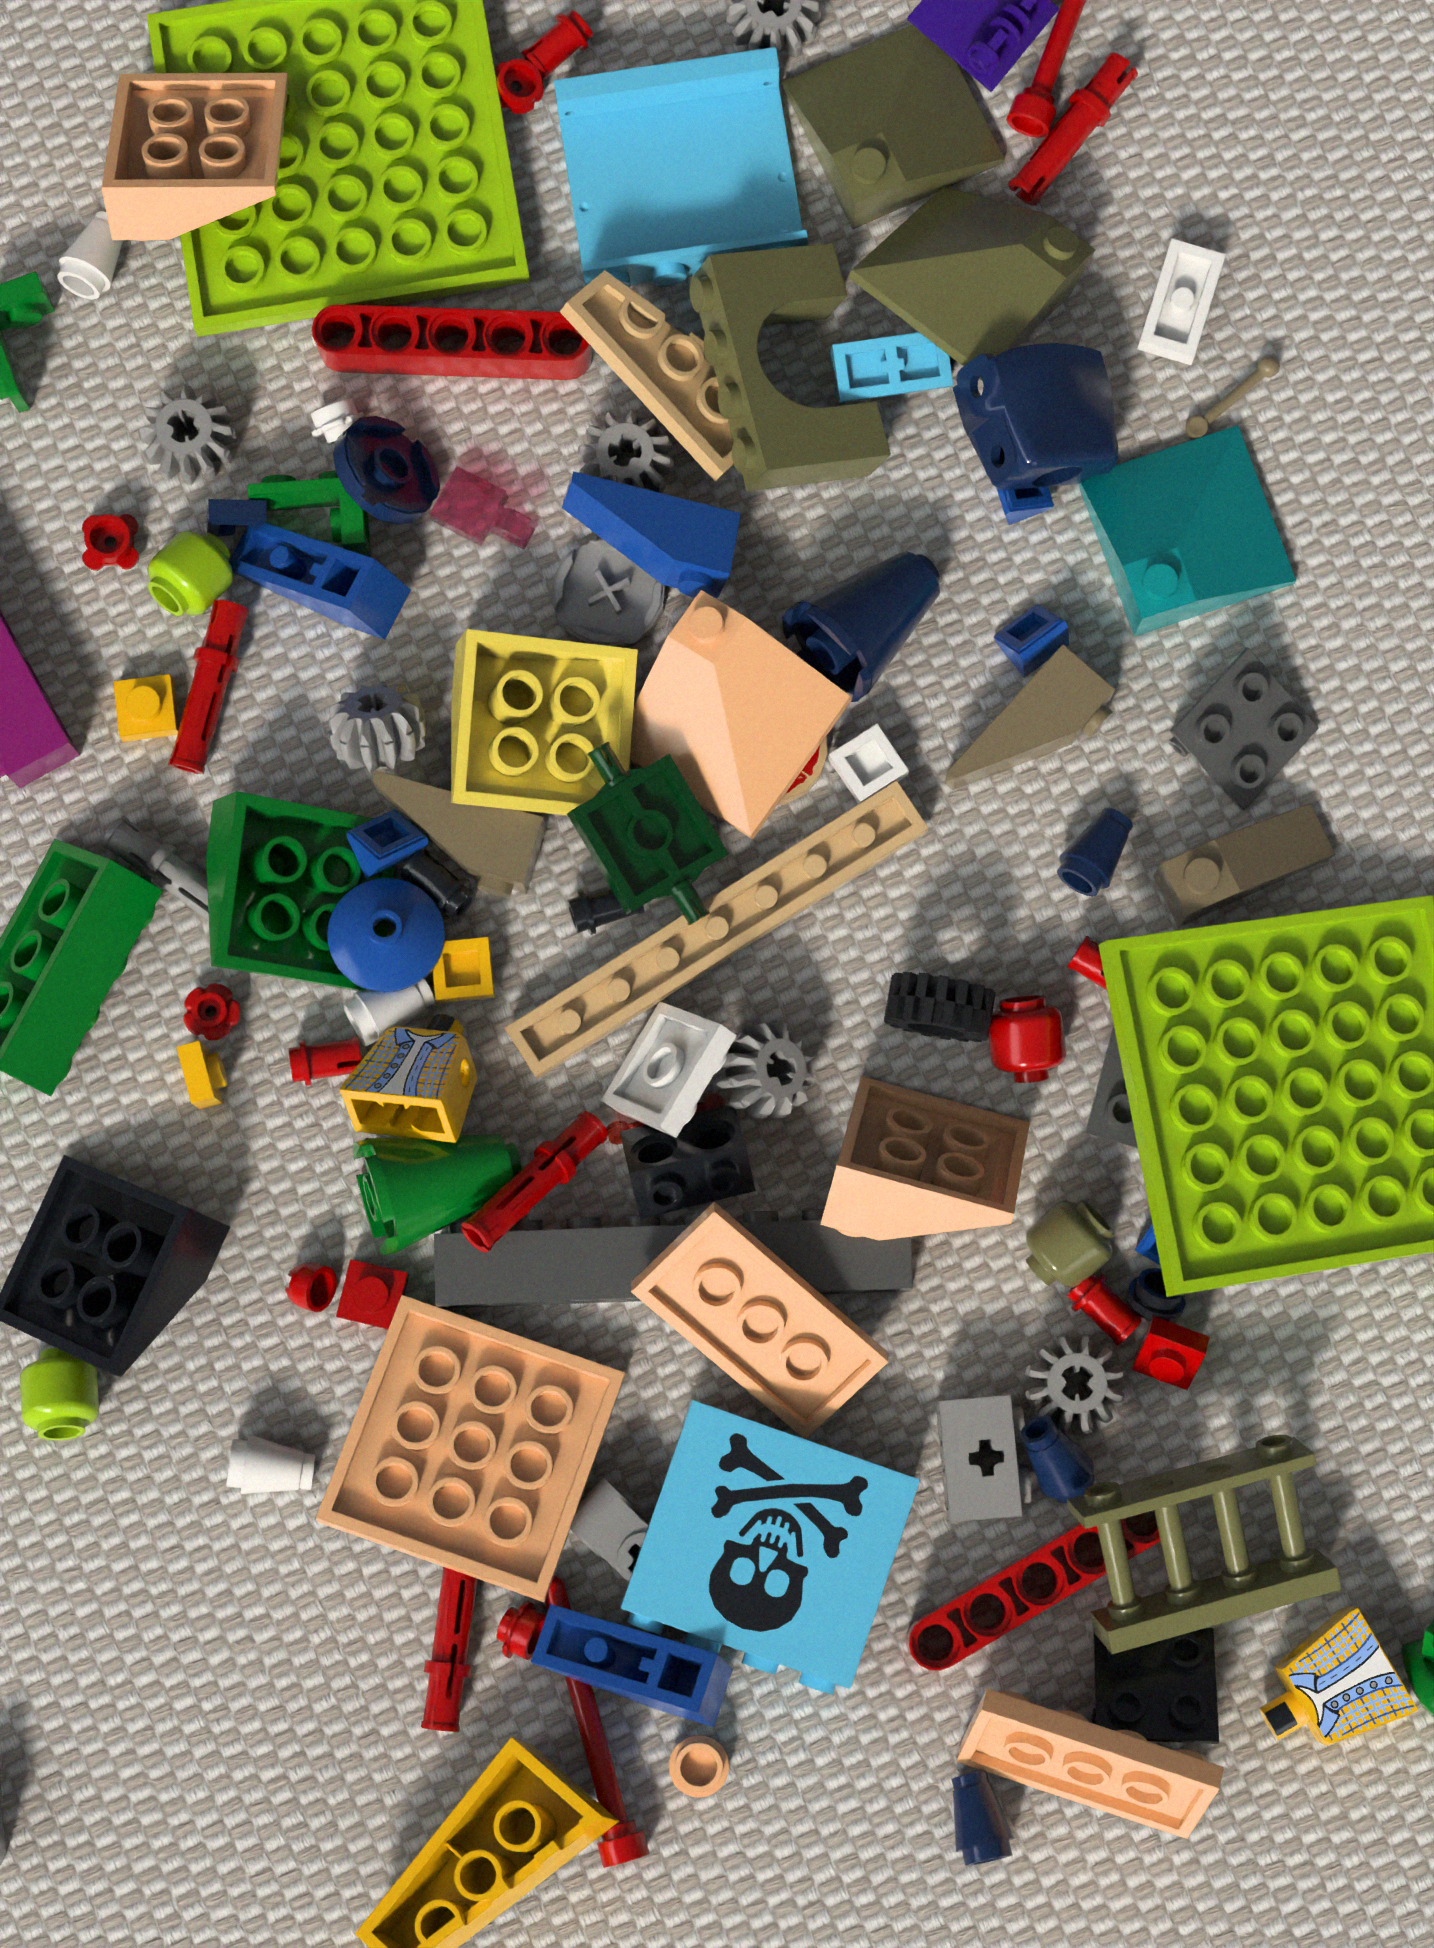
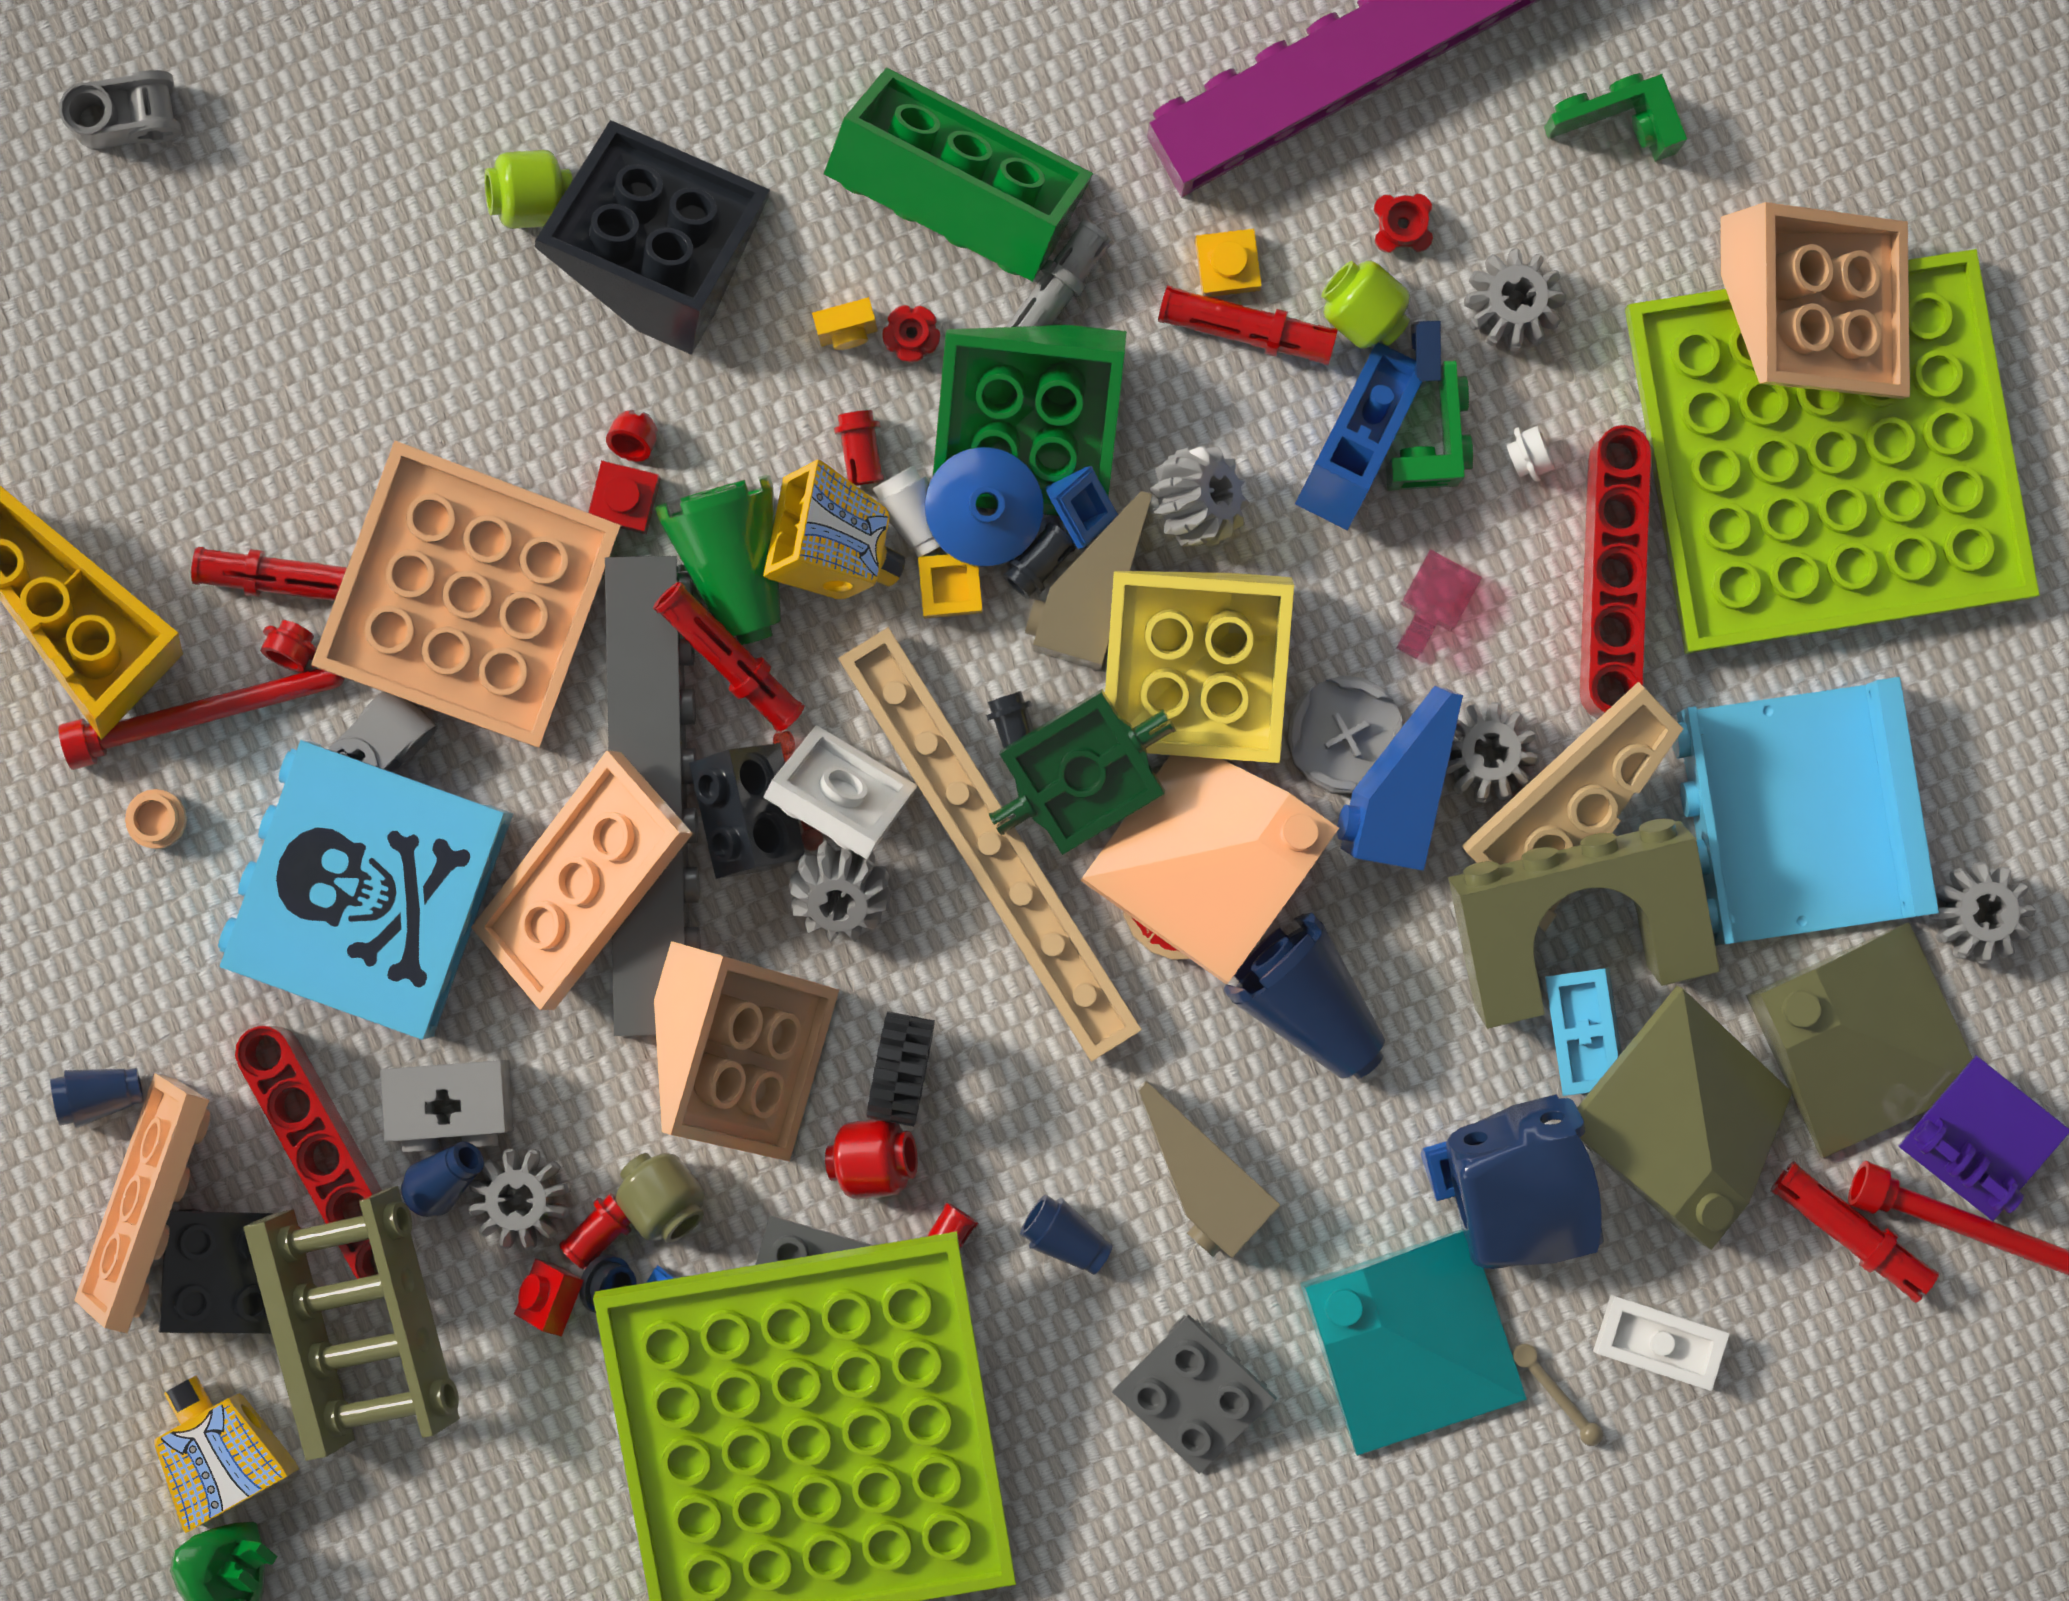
camera: 85 degrees right, 5 degrees up
(90, 260) = (1704, 195): white cone -> none
(268, 1466) = (454, 395): white cone -> none
(386, 470) = (1472, 503): dark blue tile -> none
(529, 79) = (1904, 654): red plate -> none
(558, 43) = (1947, 682): red pin -> none
(634, 1664) = (250, 753): blue slope -> none
(868, 763) = (1160, 1001): white plate -> none
(1032, 638) = (1295, 1175): blue slope -> none
(1241, 863) = (1053, 1390): dark tan slope -> none

